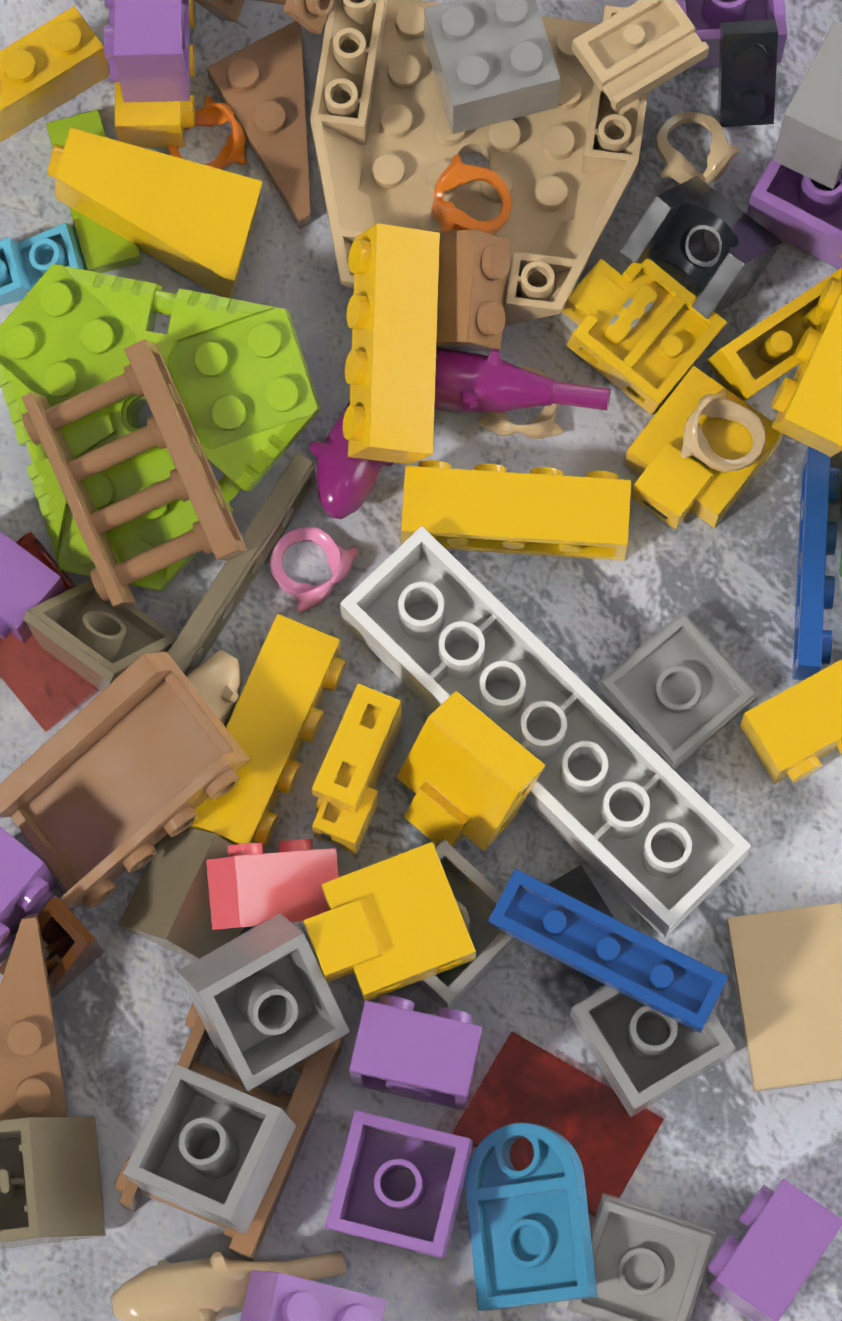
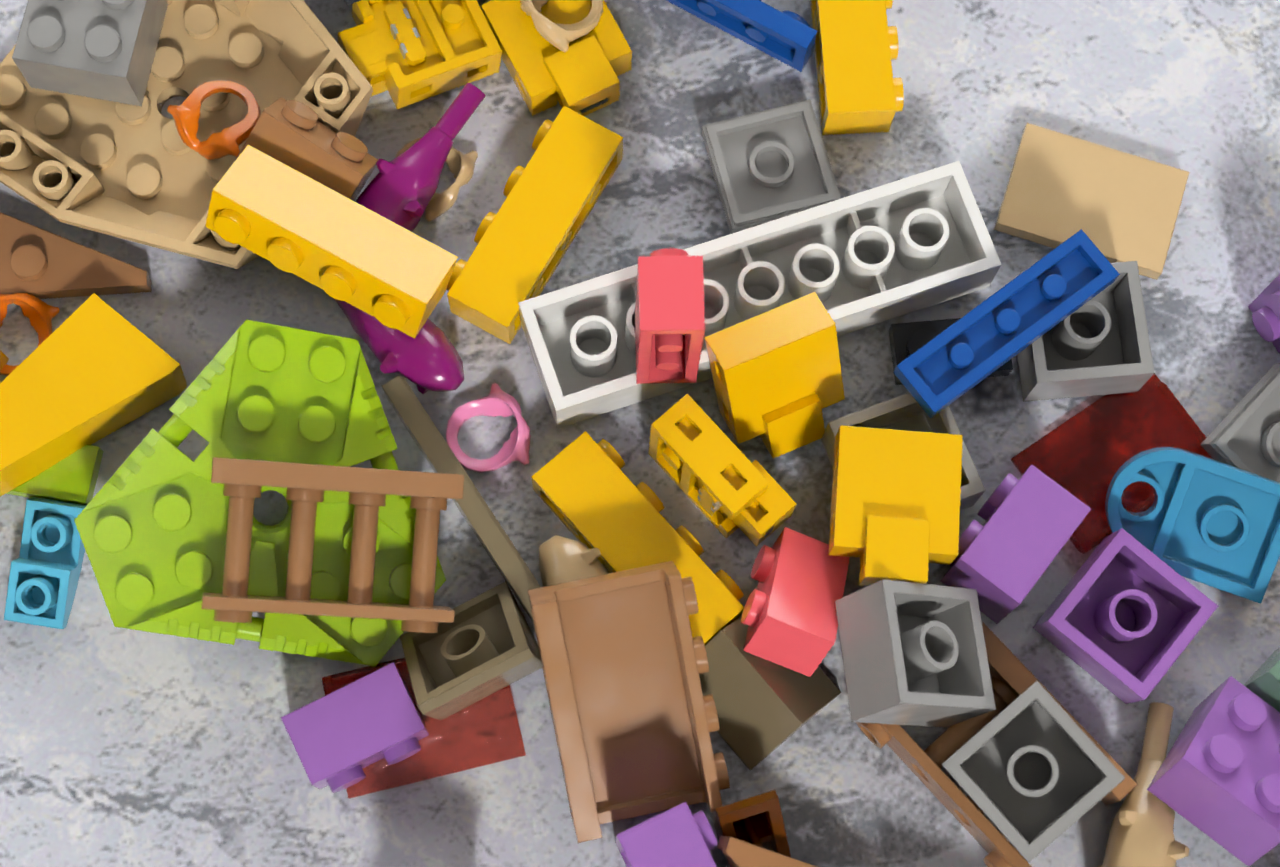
camera: 70 degrees left, 0 degrees up
(444, 643) = (669, 317): none -> coral brick

